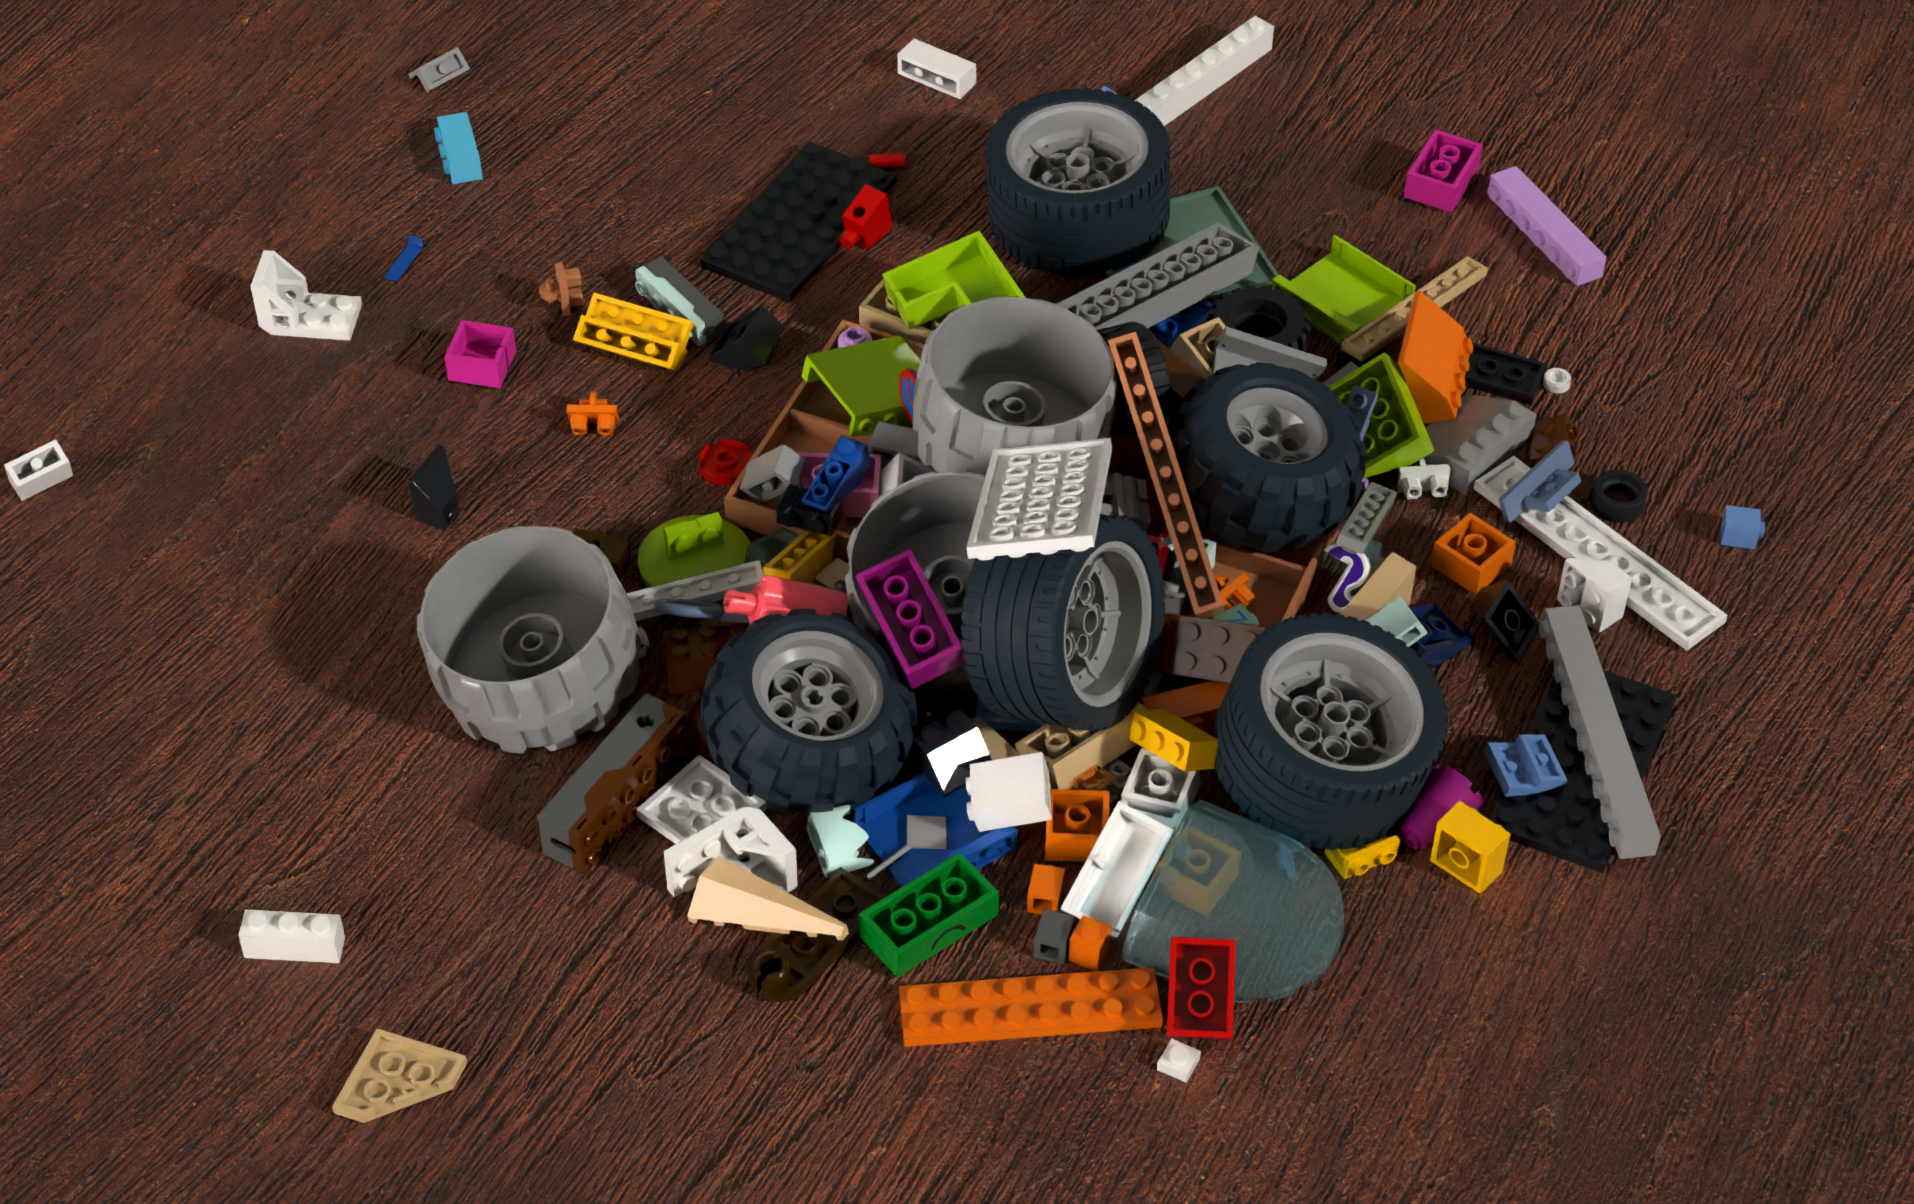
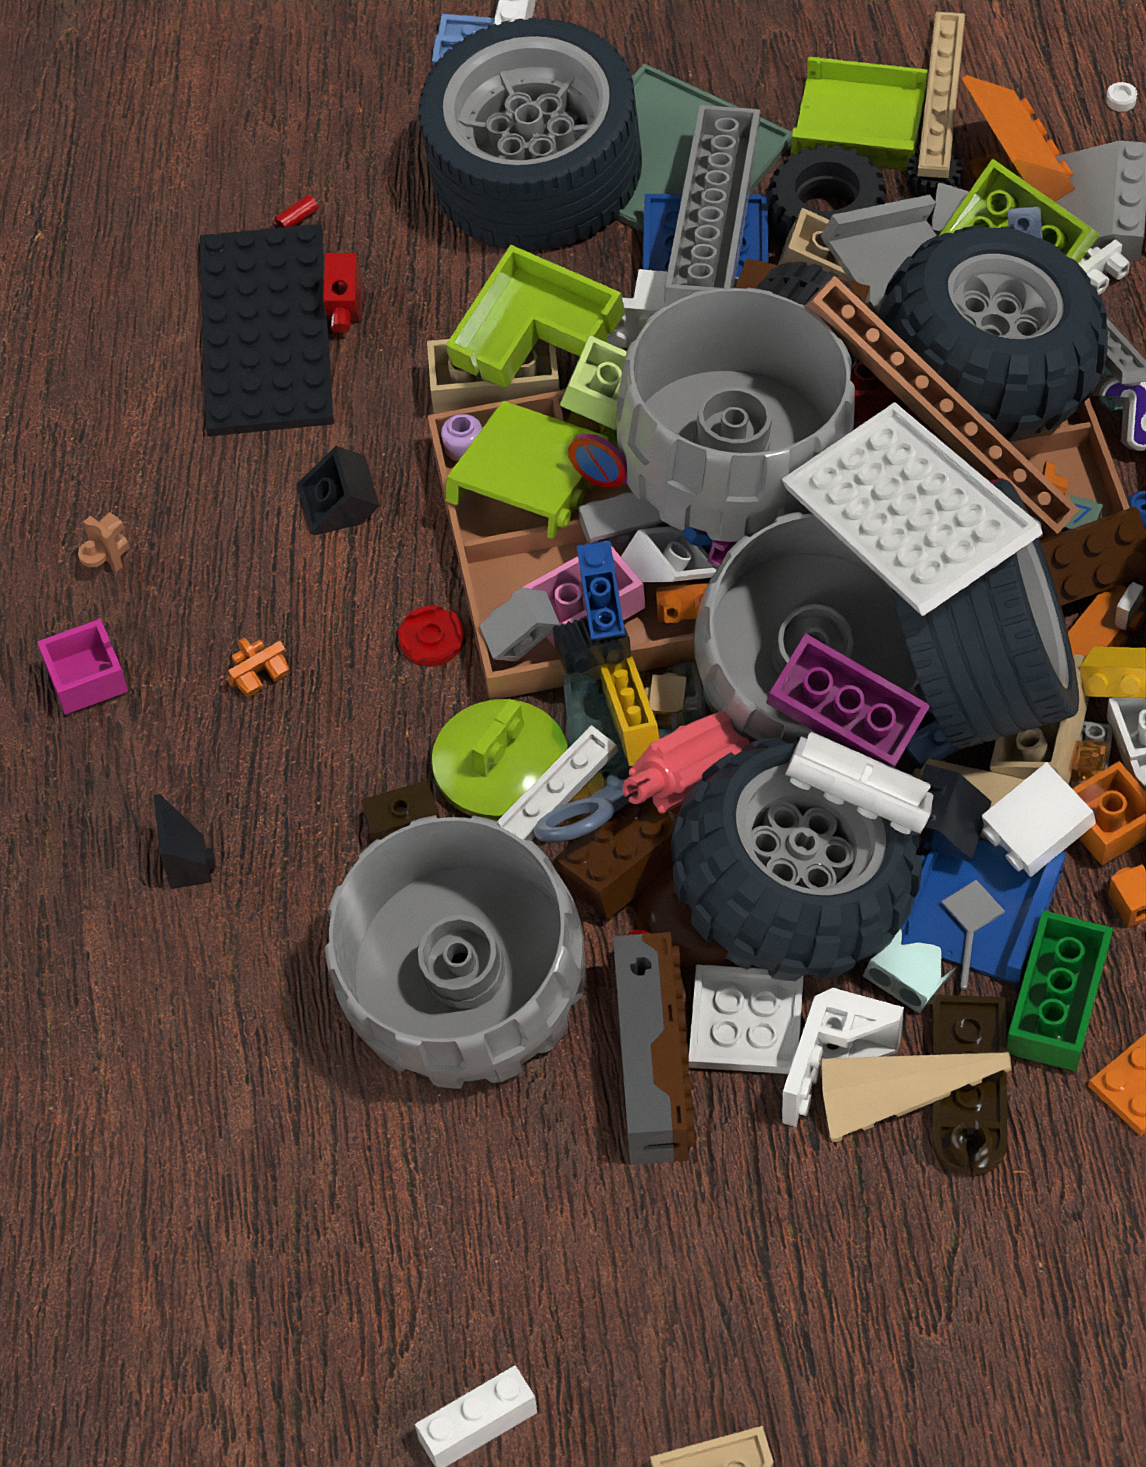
camera: 30 degrees left, 10 degrees up
(634, 332) = (218, 549): yellow brick -> none
(678, 297) = (230, 487): piece -> none
(873, 671) = (862, 782): none -> white container
(936, 68) = (258, 83): white brick -> none
(1212, 696) = (1128, 606): none -> white tile
(1504, 374) = (1075, 115): black tile -> none

